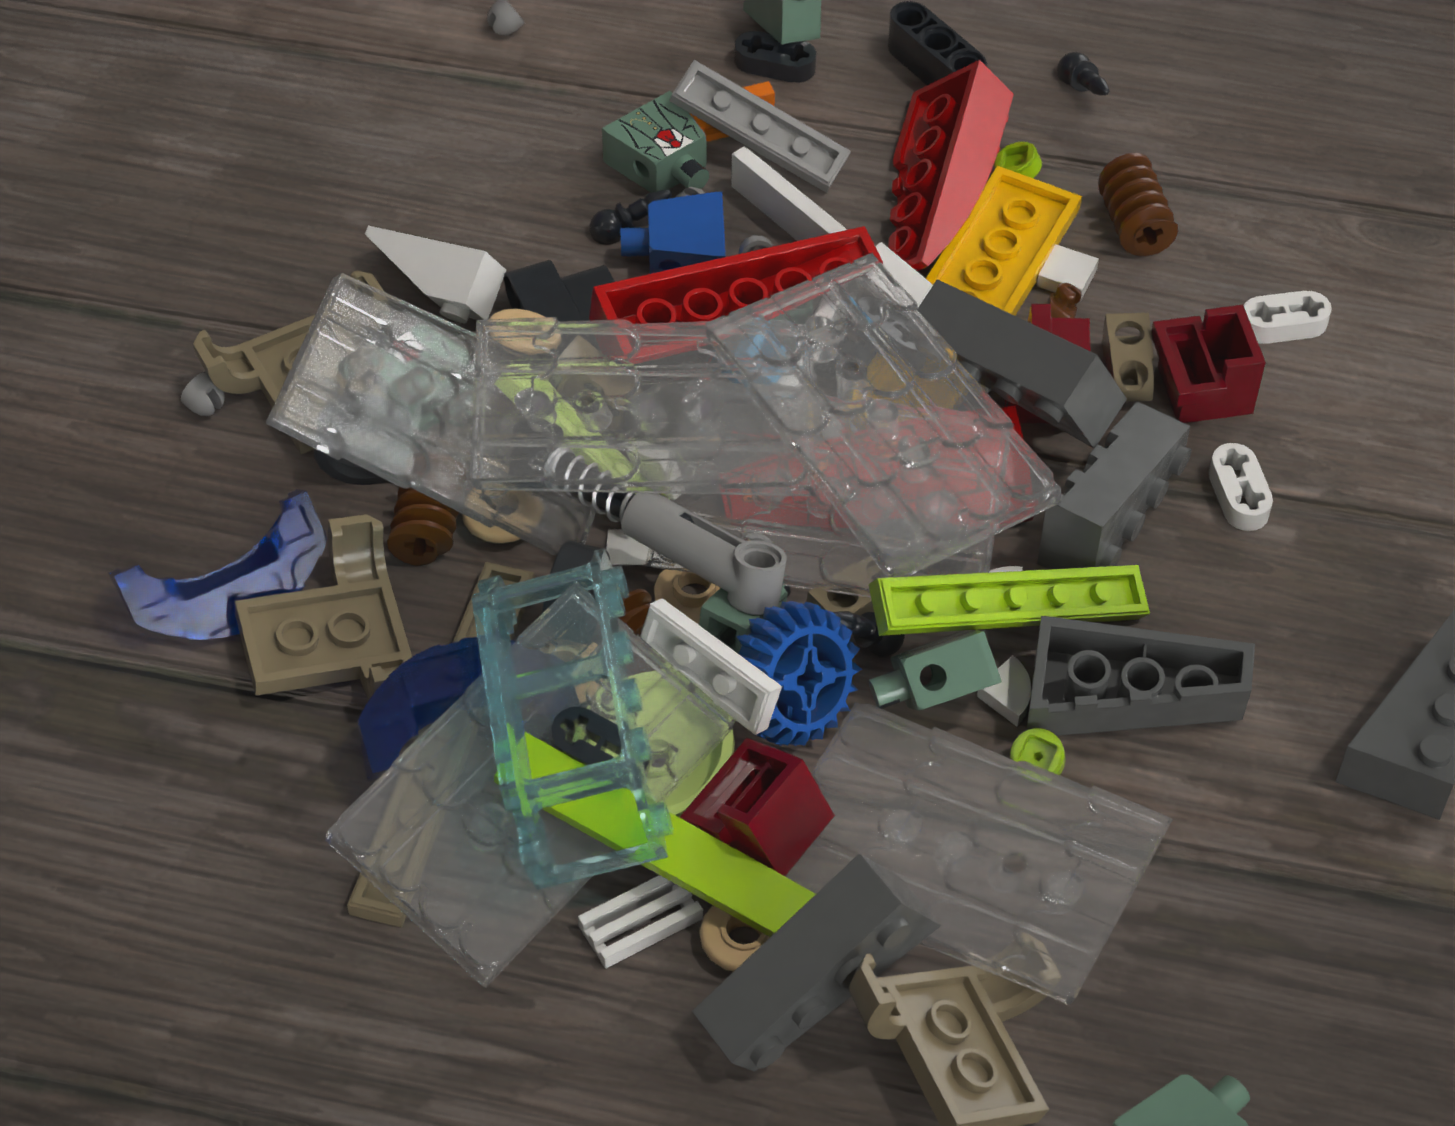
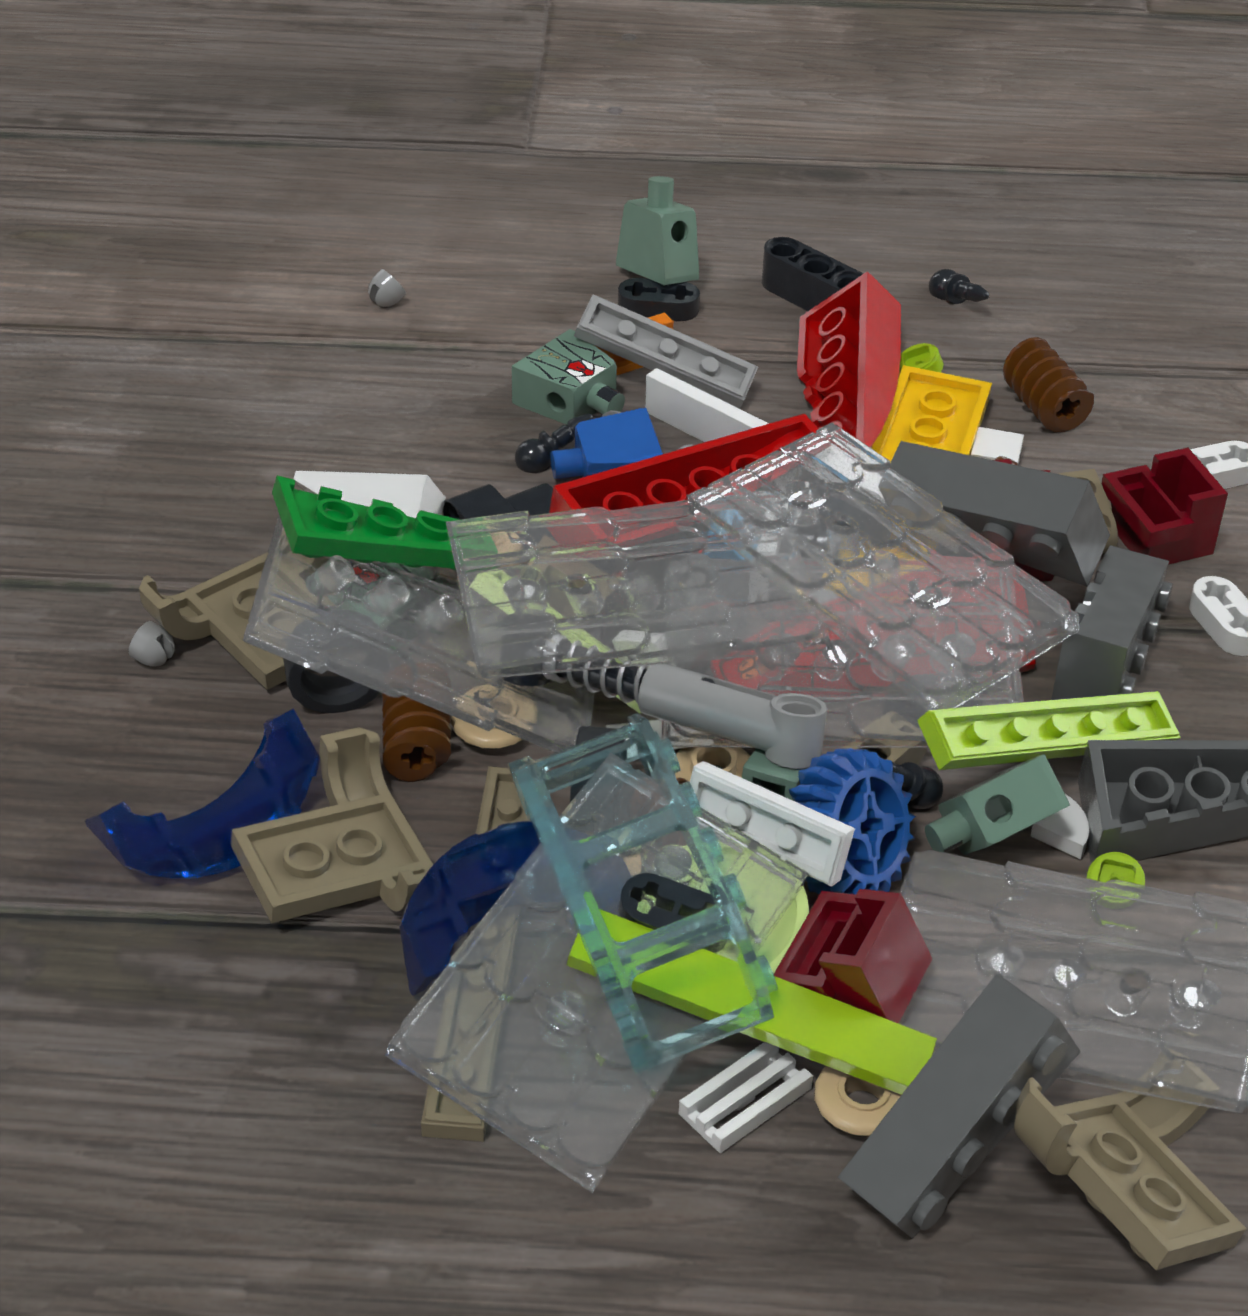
camera: 10 degrees left, 10 degrees down
(390, 316) = (381, 533): none -> green wing

